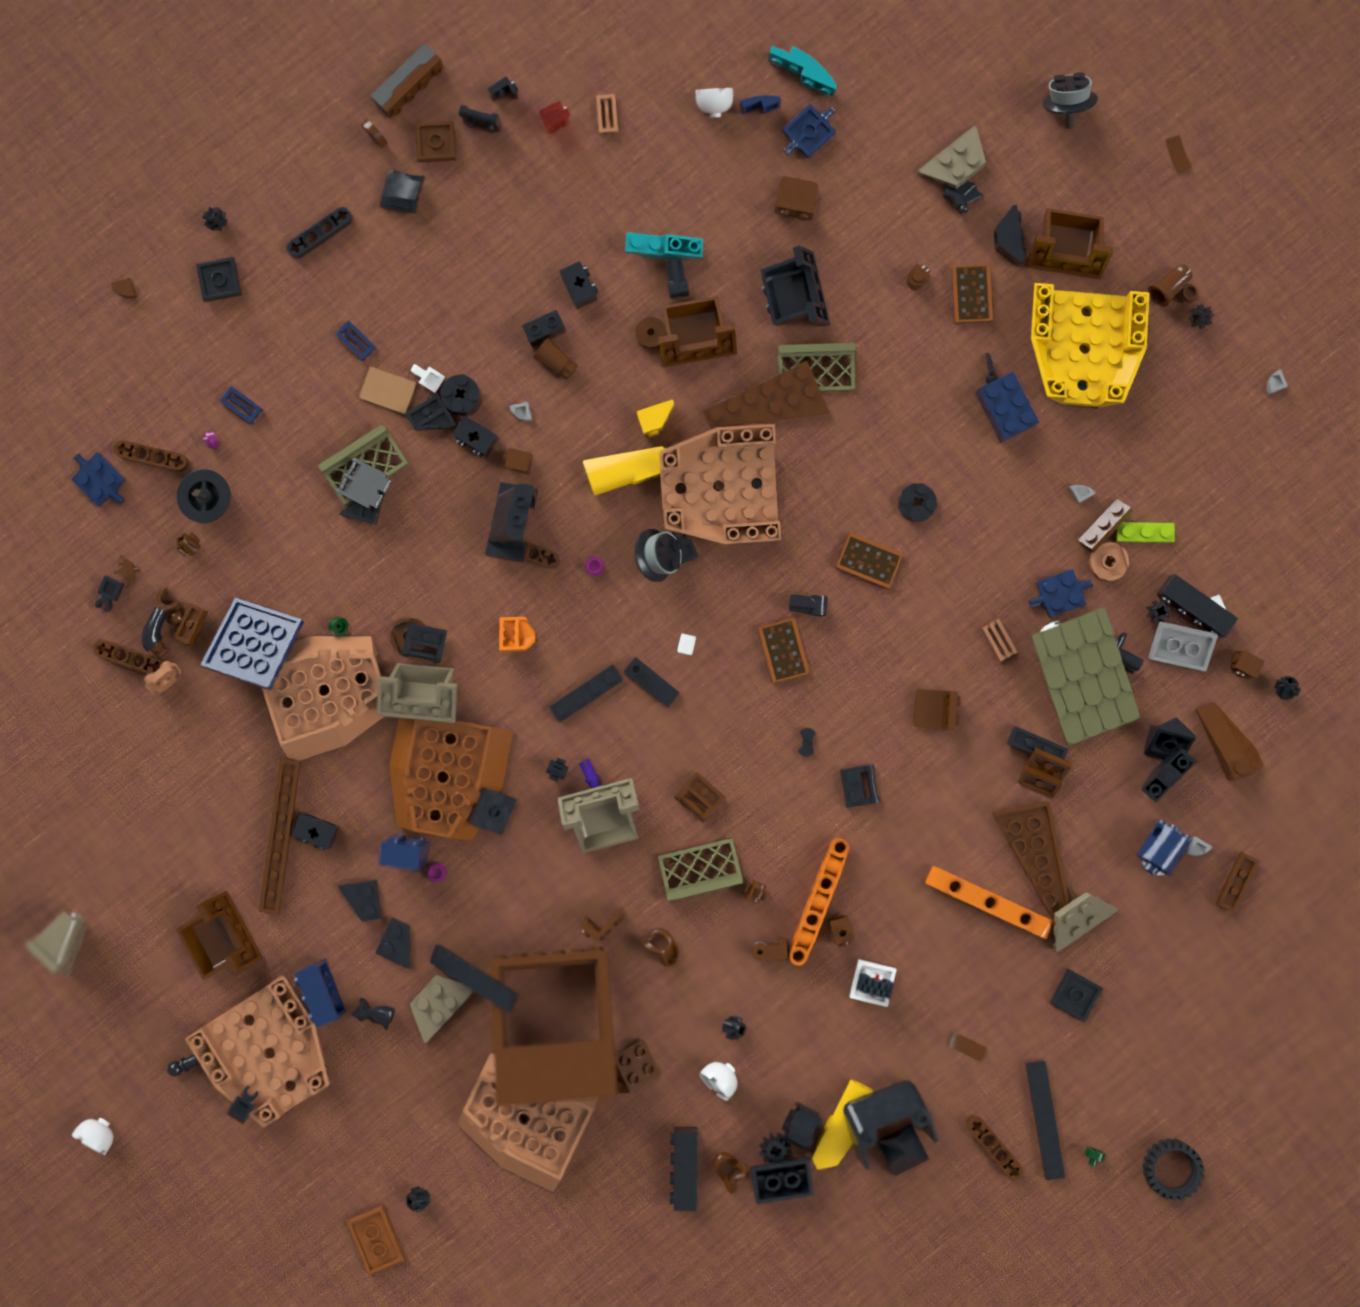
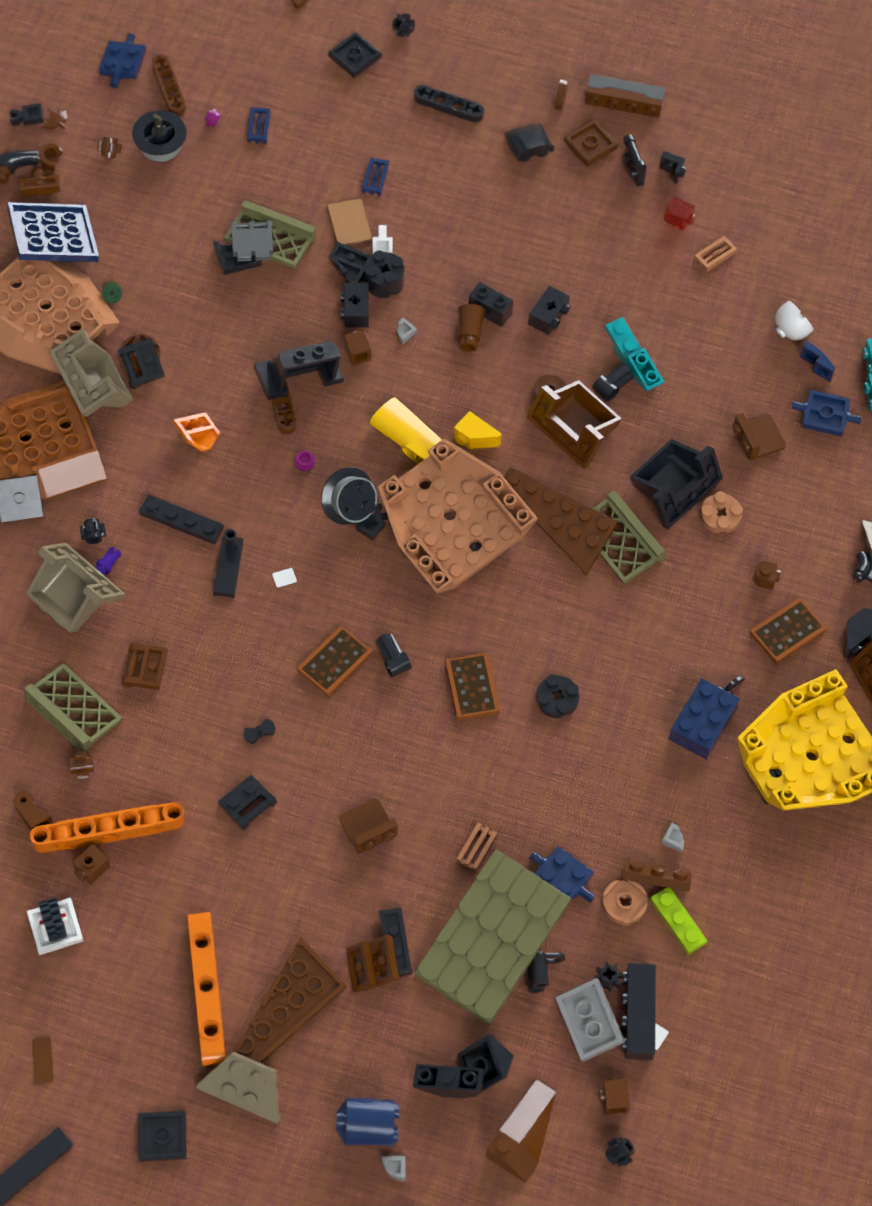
camera: 55 degrees right, 25 degrees down
(838, 284) = (722, 502): none -> nougat plate

